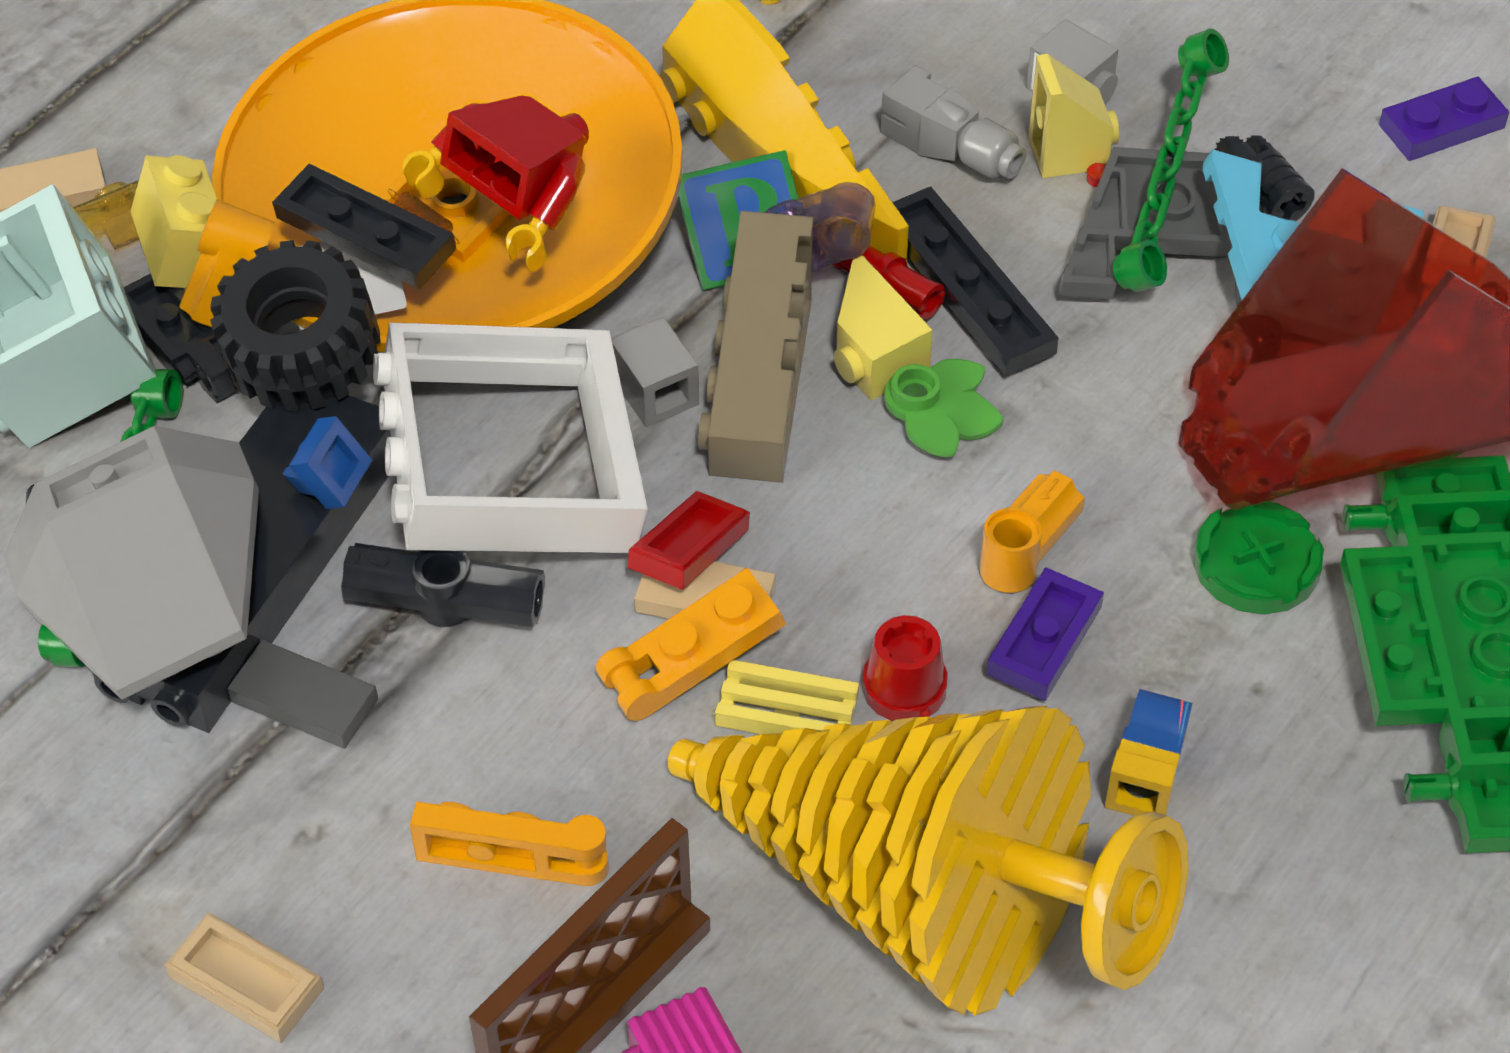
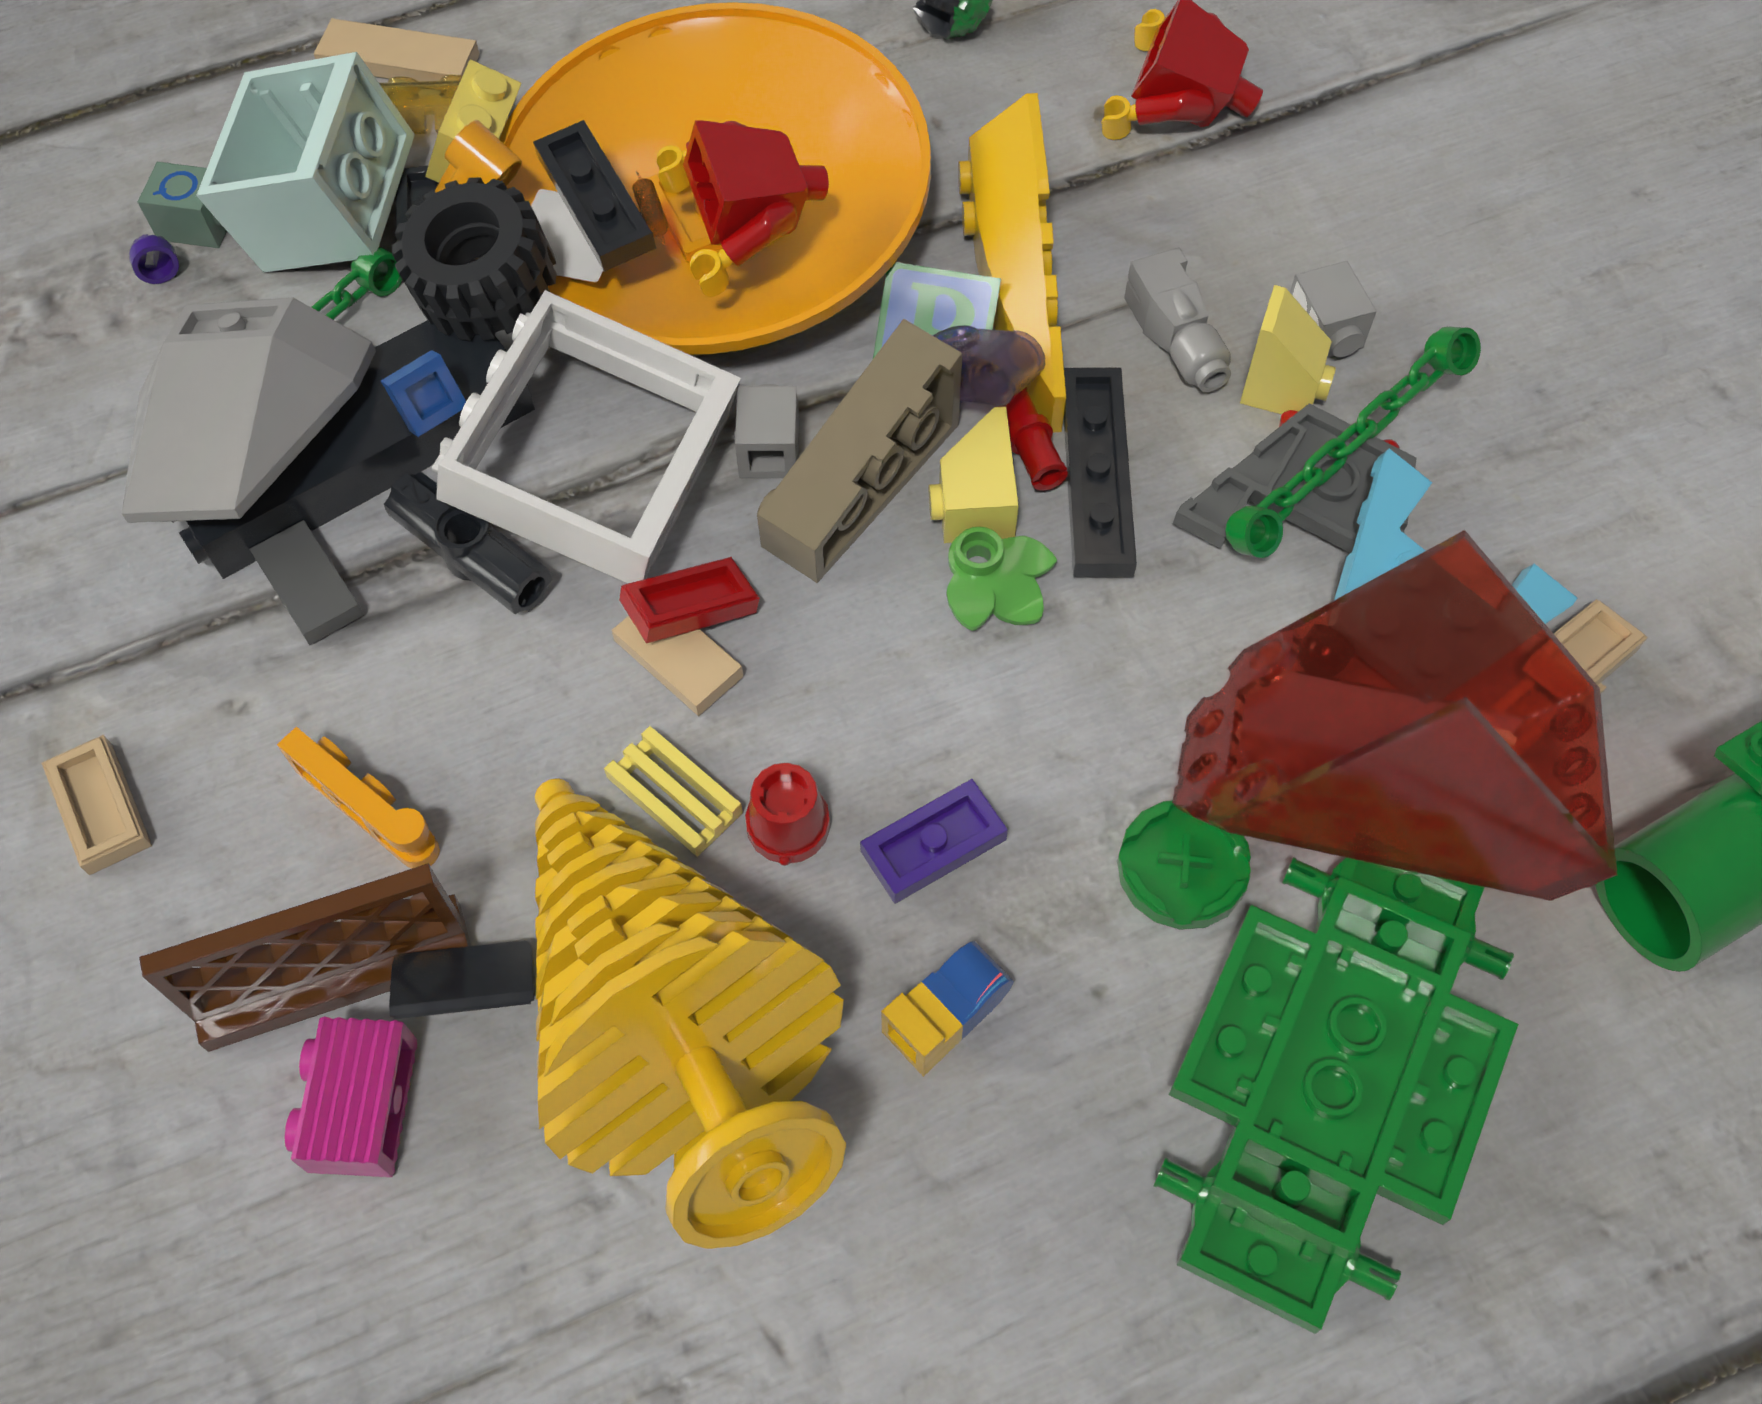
camera: 30 degrees right, 10 degrees up
(690, 645) = (624, 697): light orange plate -> none
(724, 935) = (462, 979): none -> black slope
(1026, 531) = (987, 733): light orange piece -> none
(1281, 187) = (1449, 500): black hinge -> none
(1443, 118) = (1666, 513): dark purple plate -> none

